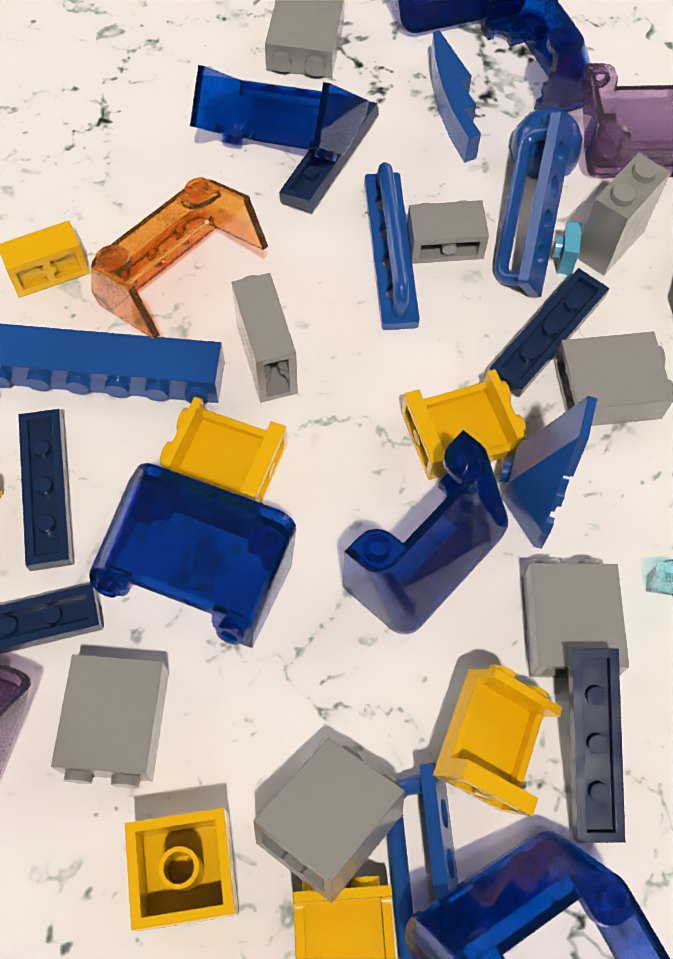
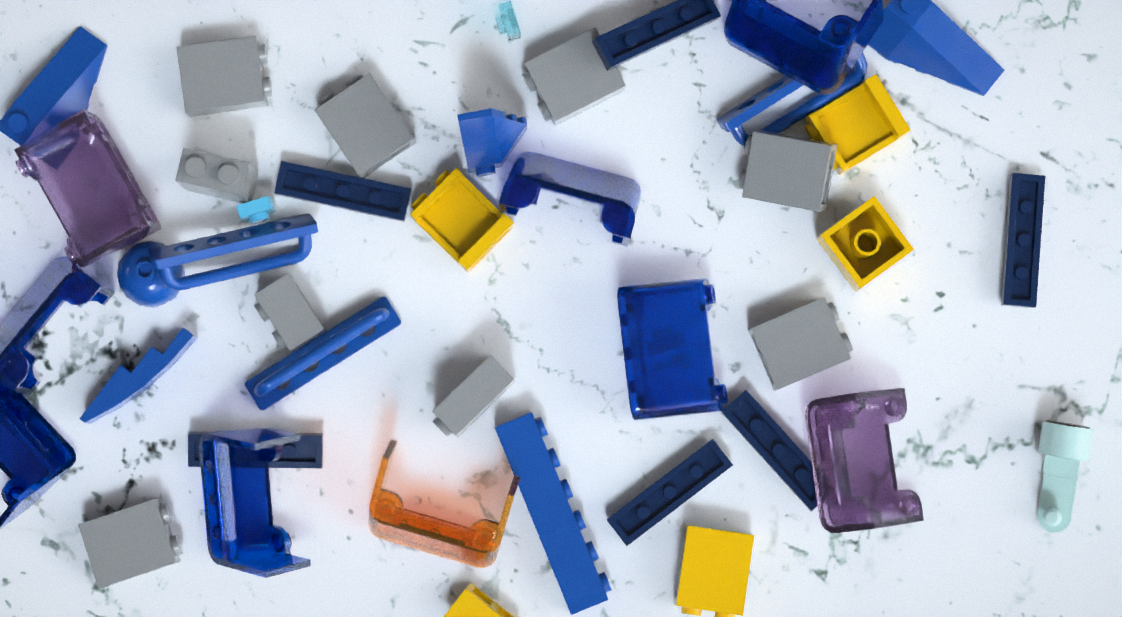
camera: 120 degrees left, 20 degrees up
(225, 451) = (577, 379): yellow panel -> none
(494, 738) = (687, 93): yellow panel -> none

